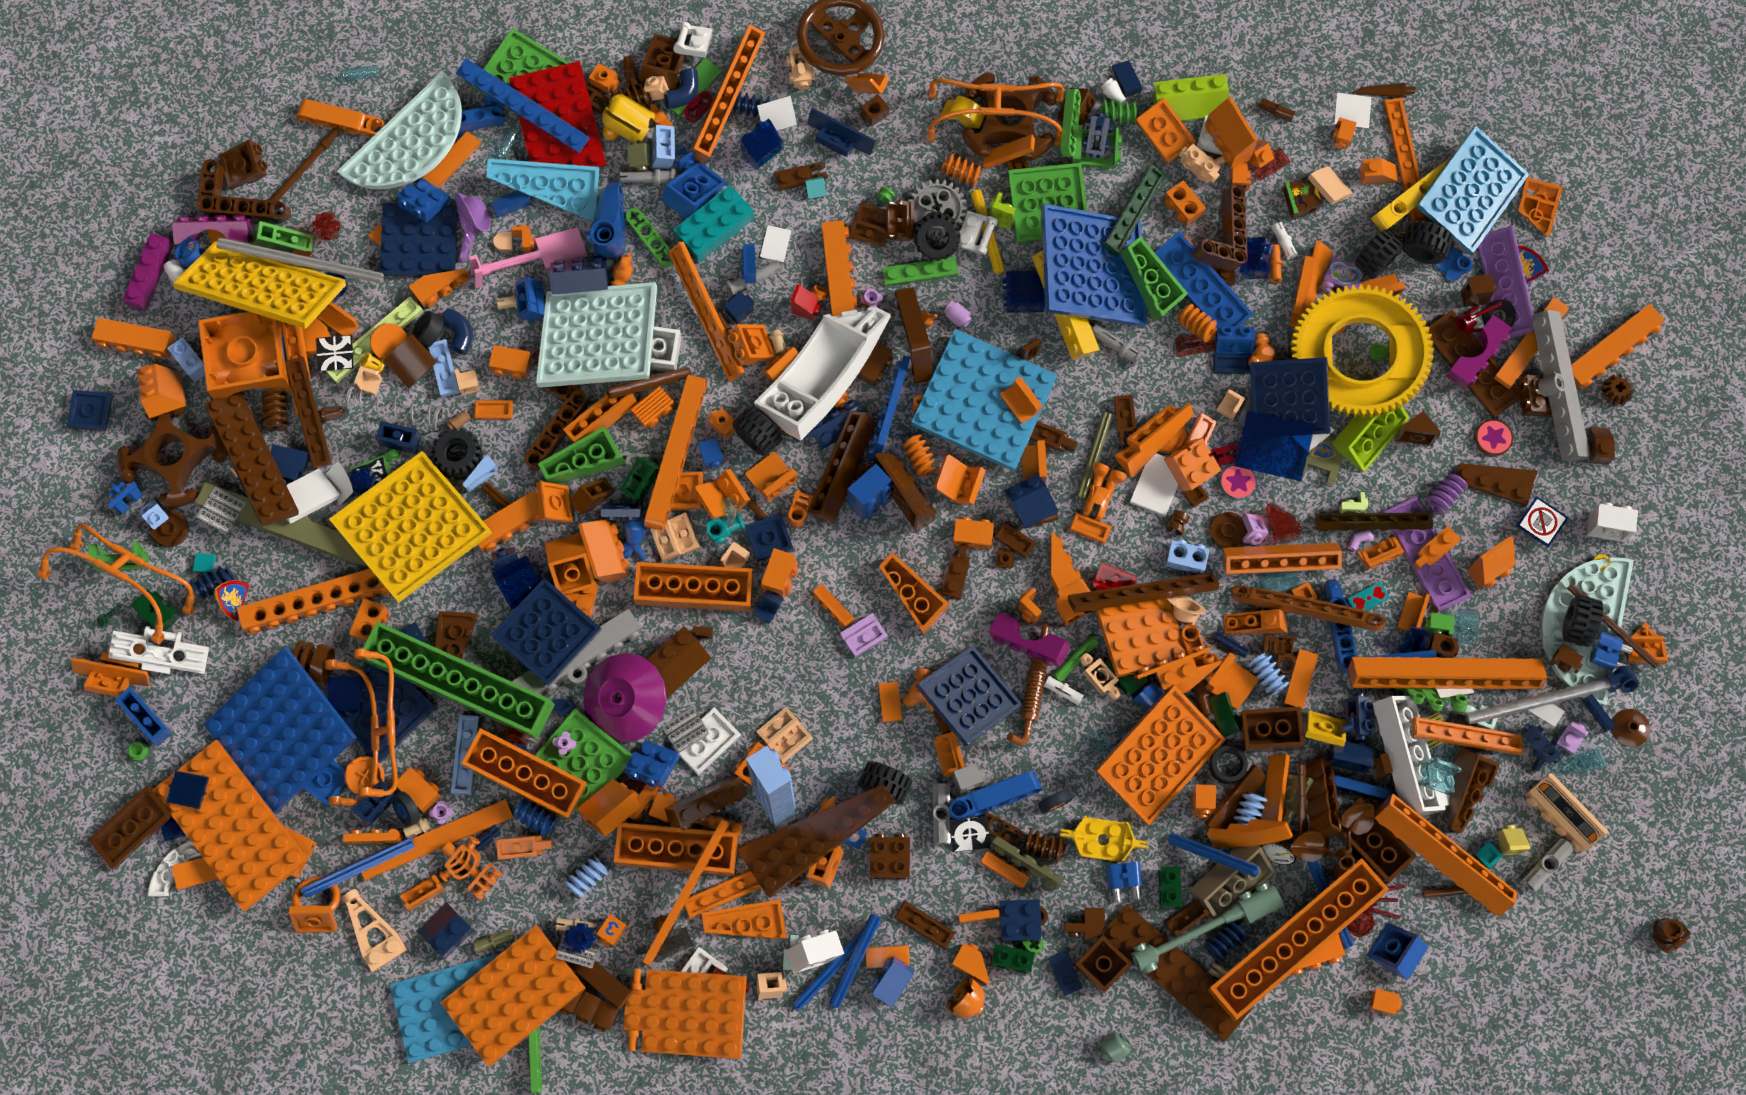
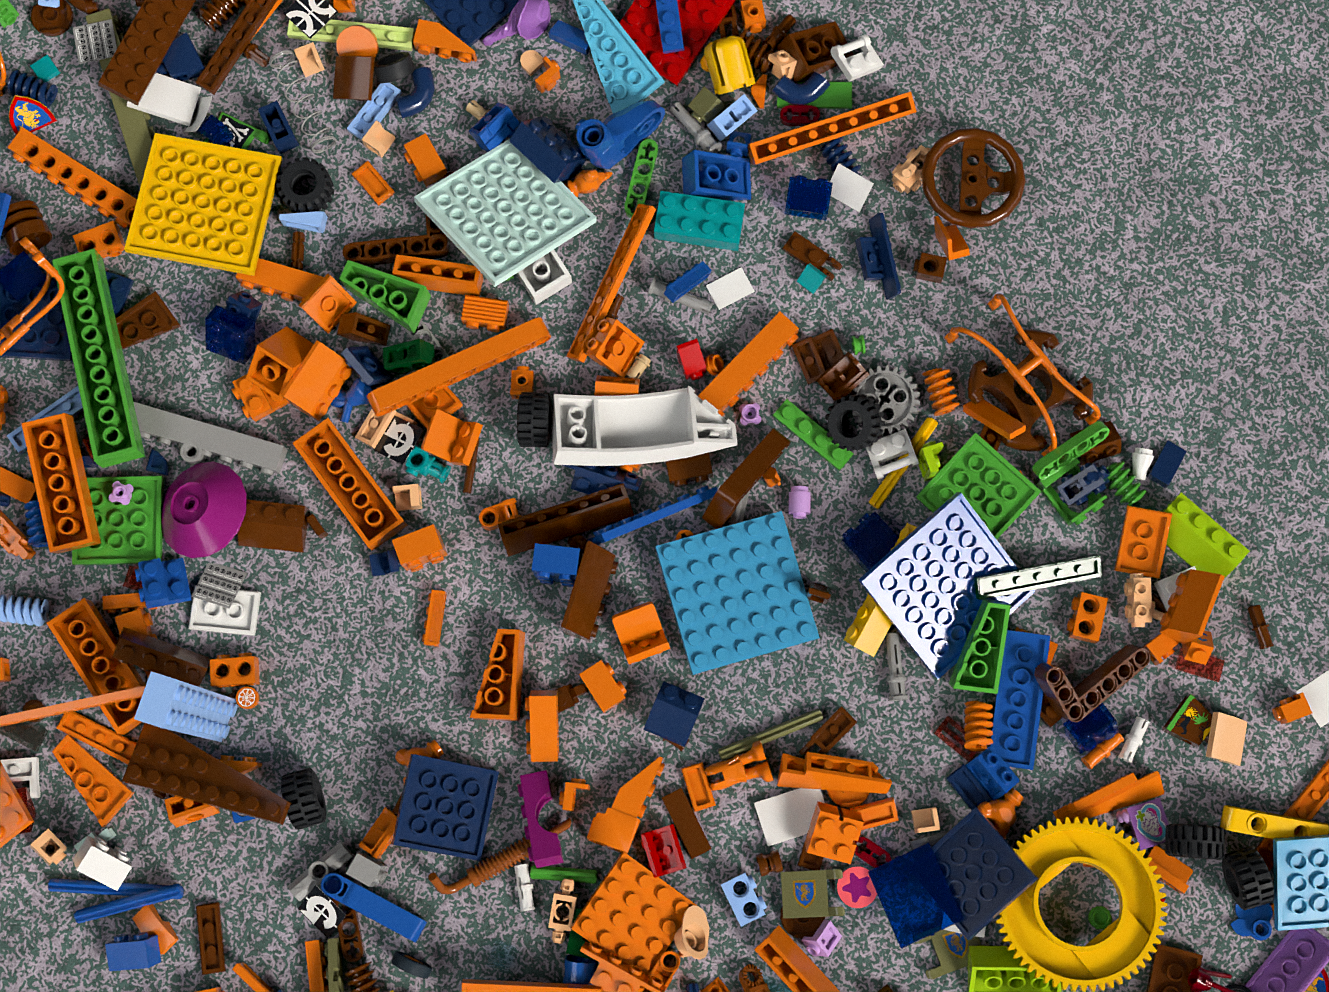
camera: 55 degrees right, 5 degrees up
(371, 362) = (326, 42): yellow bush -> none
(458, 421) = (337, 163): medium nougat pin -> none
(546, 632) = (203, 395): dark blue plate -> none
(552, 247) = (558, 106): bright pink piece -> none
(609, 807) = (92, 579): orange brick -> none
(643, 384) = (500, 290): reddish brown axle -> none
(691, 531) = (398, 440): none -> sticker
(711, 453) = (485, 397): blue brick -> none
(730, 512) = (442, 458): clear light blue bar -> none
(739, 307) = (641, 307): dark blue brick -> none
(767, 535) = (451, 510): dark blue plate -> none
(771, 477) = (508, 466): orange bracket -> none
(784, 734) = (284, 673): light nougat slope -> none
(863, 635) = (429, 667): lavender plate -> none
(890, 702) = (388, 740): orange tile -> none
(890, 857) = (243, 857): reddish brown brick -> none
(918, 456) = (635, 580): orange piece -> none
(960, 103) = (1002, 340): yellow brick -> none
(968, 590) = (542, 725): none -> orange brick
(1005, 564) = (597, 733): reddish brown plate -> none
(1015, 540) = (629, 729): reddish brown plate -> none
(1021, 400) = (760, 626): orange panel -> none
(1034, 461) = (717, 685): orange panel -> none
(1053, 437) = (754, 682): reddish brown hinge -> none
(1108, 554) = (686, 823): none -> reddish brown tile
(1143, 592) = (670, 887): reddish brown plate -> none
(1216, 514) = (807, 894): none -> olive flag
(1282, 524) = (849, 963): clear red slope -> none
(1377, 172) = (1281, 773): orange slope -> none
(1478, 290) = (1243, 966): reddish brown brick -> none

